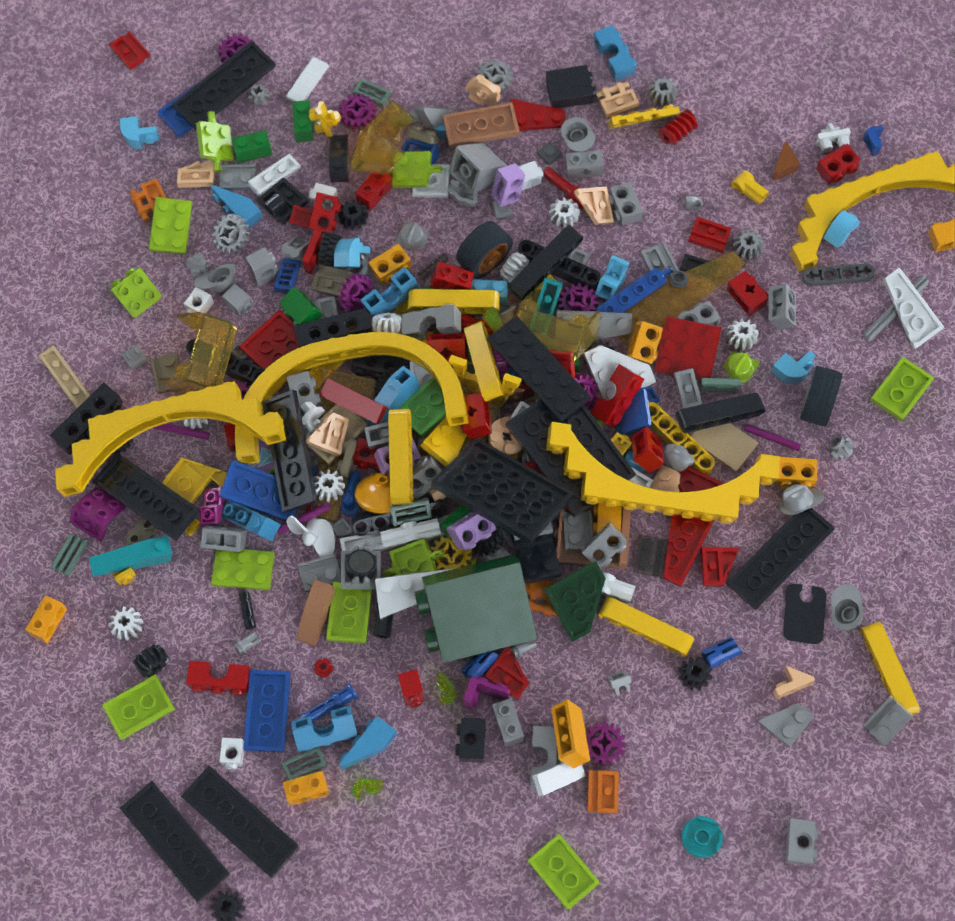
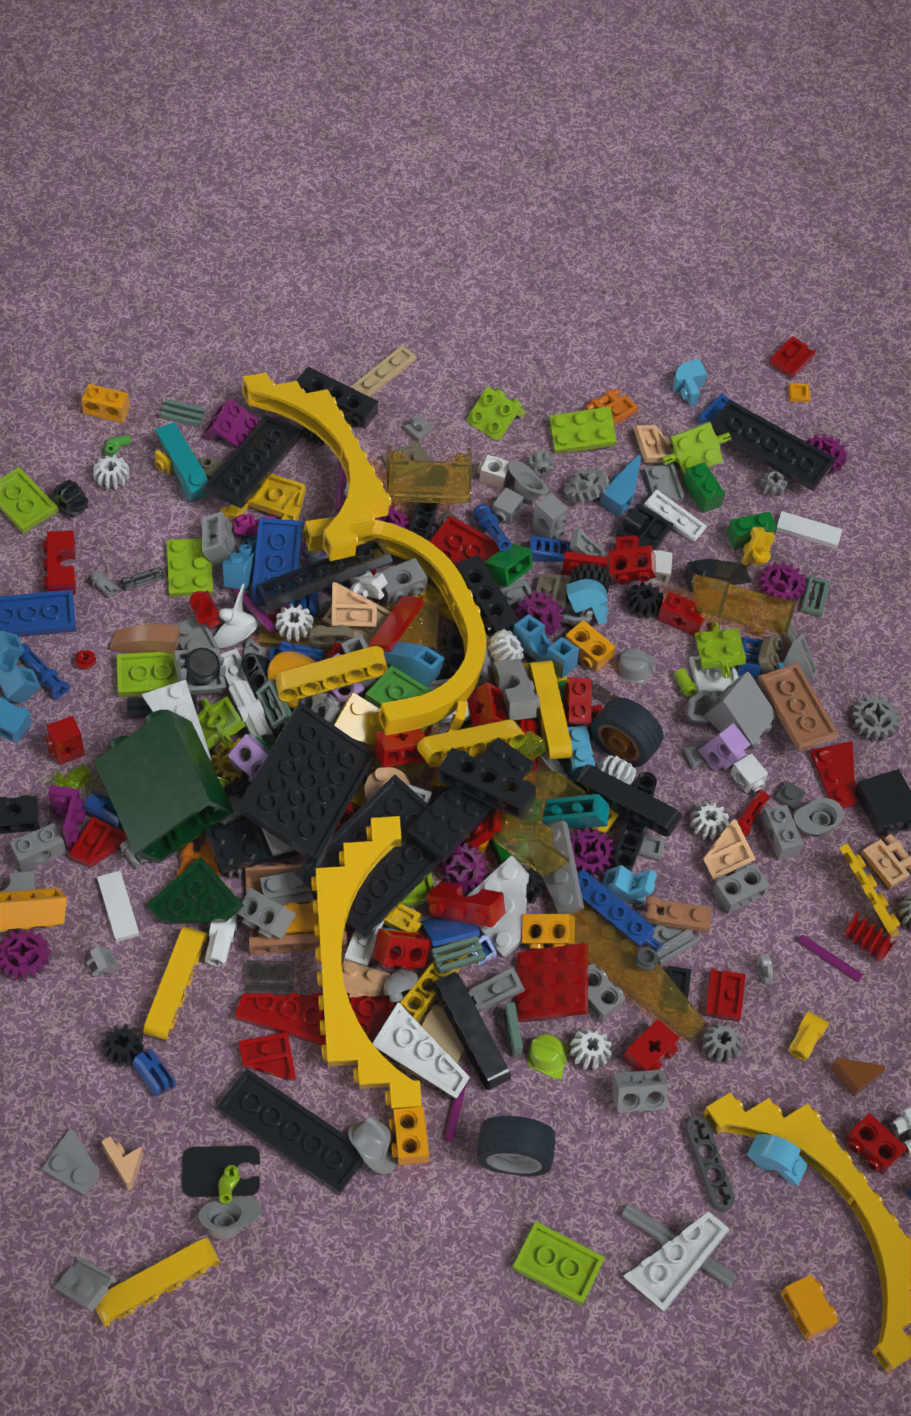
camera: 70 degrees right, 10 degrees down
(91, 618) = (115, 443): none -> bright green arm
(166, 55) = (799, 392): none -> light orange tile
(254, 316) = (489, 523): none -> blue pin
(296, 558) = (204, 608): none -> red hips
(435, 203) = (687, 687): none -> lime pin
(490, 91) = (846, 704): light nougat plate -> none
(549, 324) = (494, 794): none -> black brick
(568, 665) = (118, 906): none -> white tile
(644, 249) = (678, 915): none -> nougat plate
(656, 394) = (436, 952): none -> sand green tile
(688, 159) = (830, 958): none -> magenta bar
(730, 456) = (415, 1049): none -> white wing
(791, 371) = (552, 1112): medium azure brick -> none
(818, 608) = (227, 1183): none -> lime arm
(841, 447) = (455, 1189): light grey gear -> none

